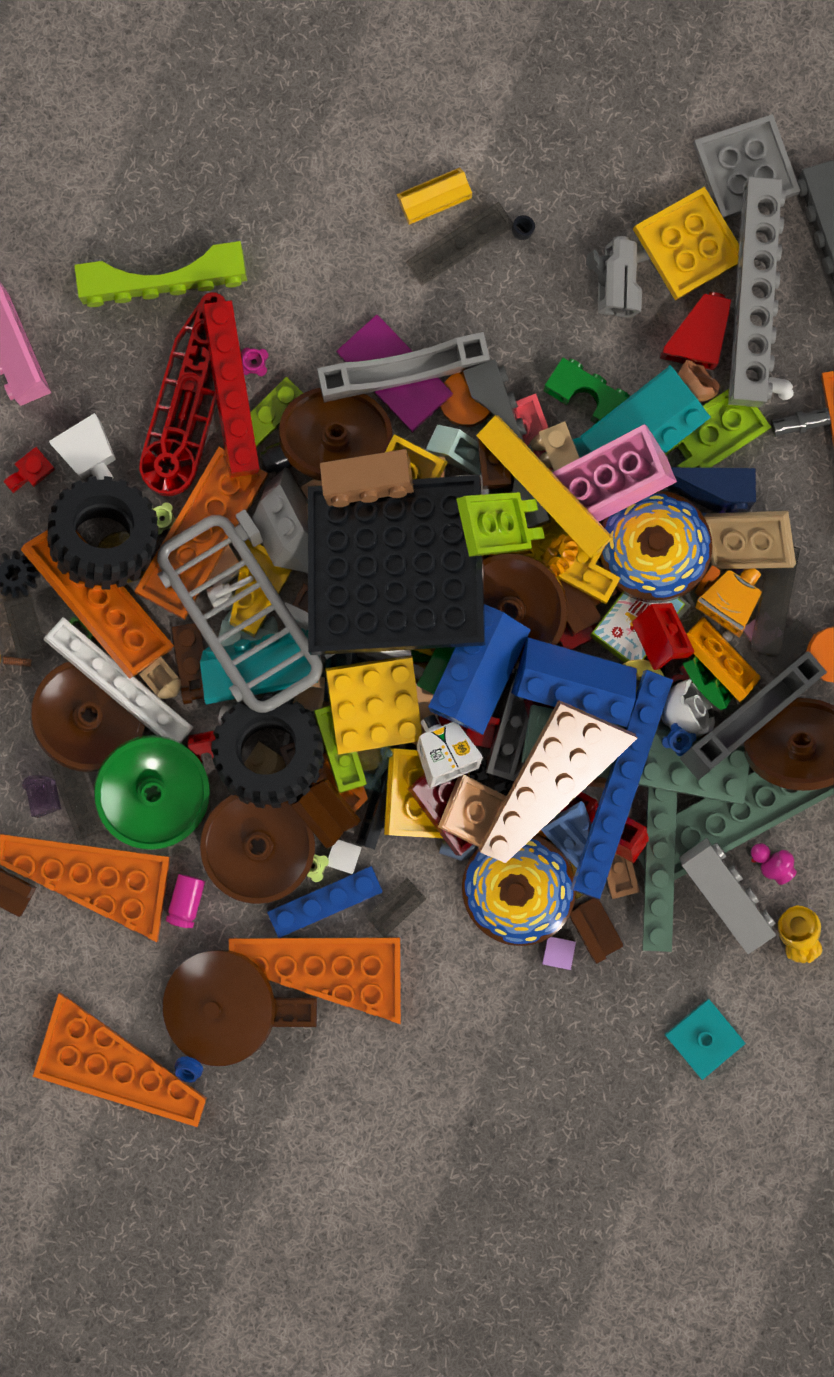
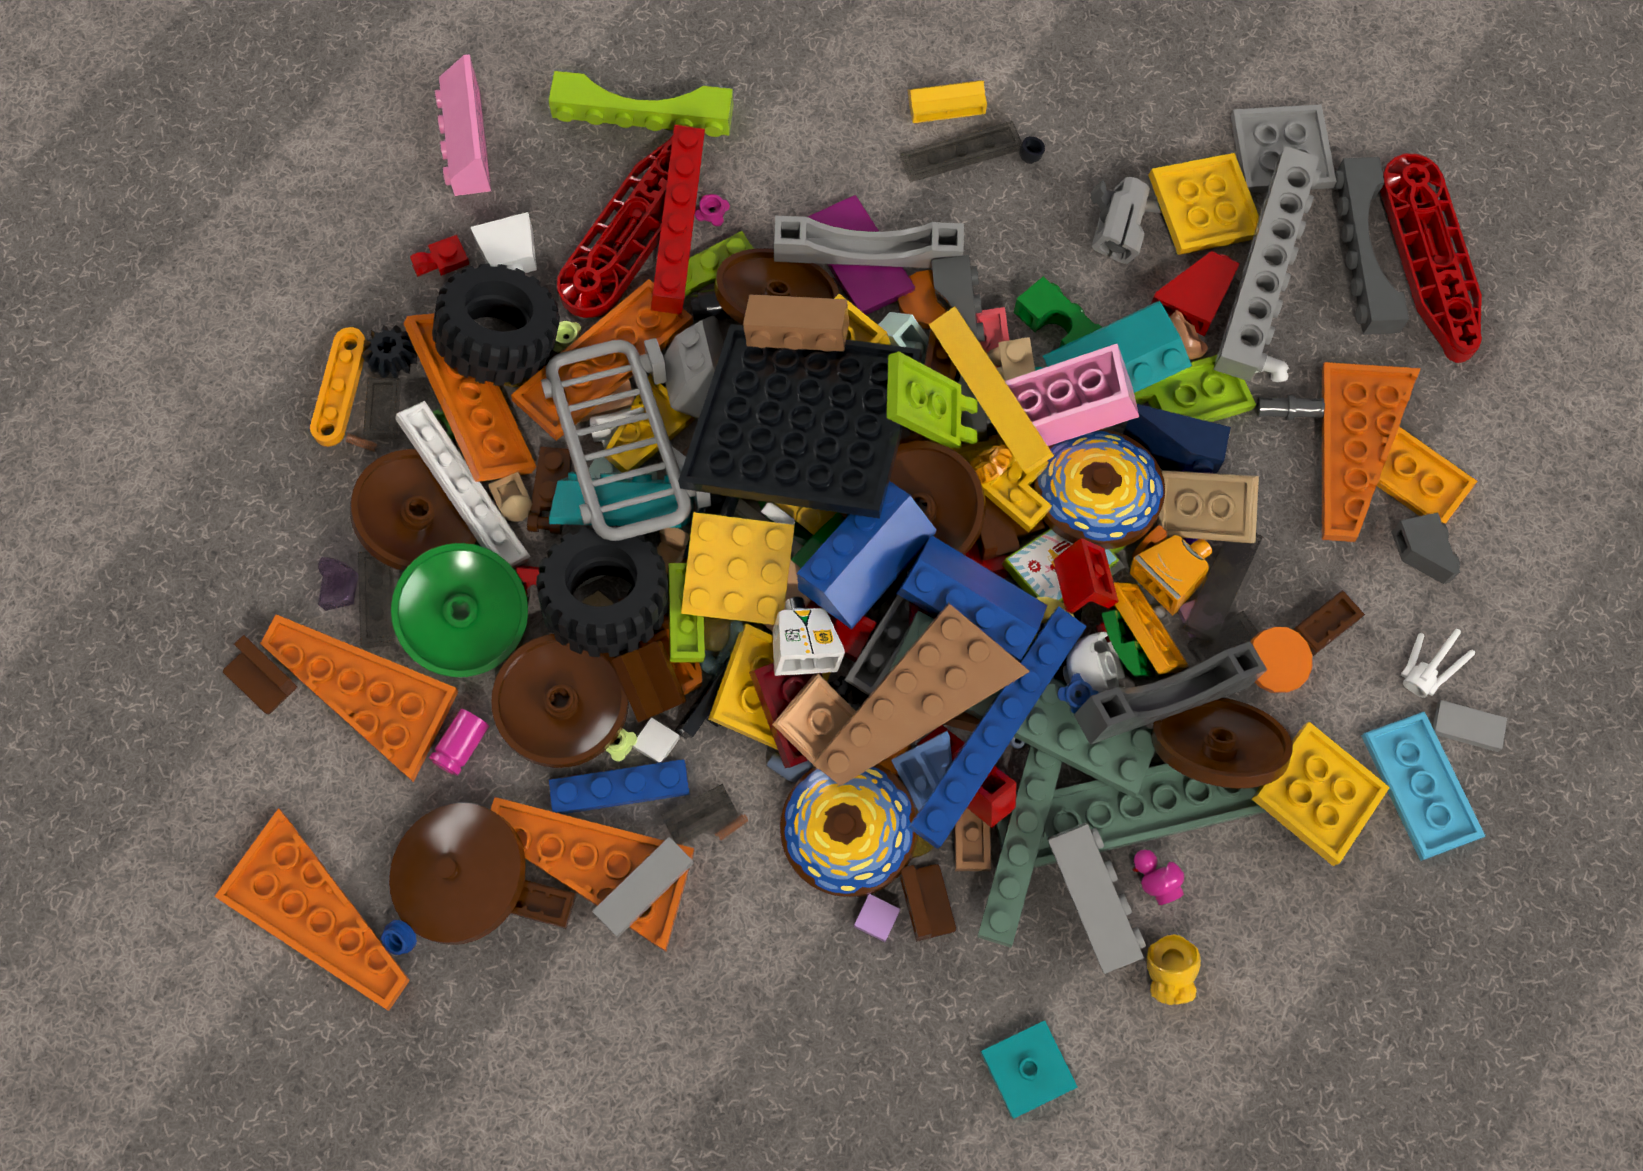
camera: 15 degrees right, 15 degrees down
(369, 980) = (643, 887): none -> light grey tile
(422, 909) = (737, 826): none -> nougat leg

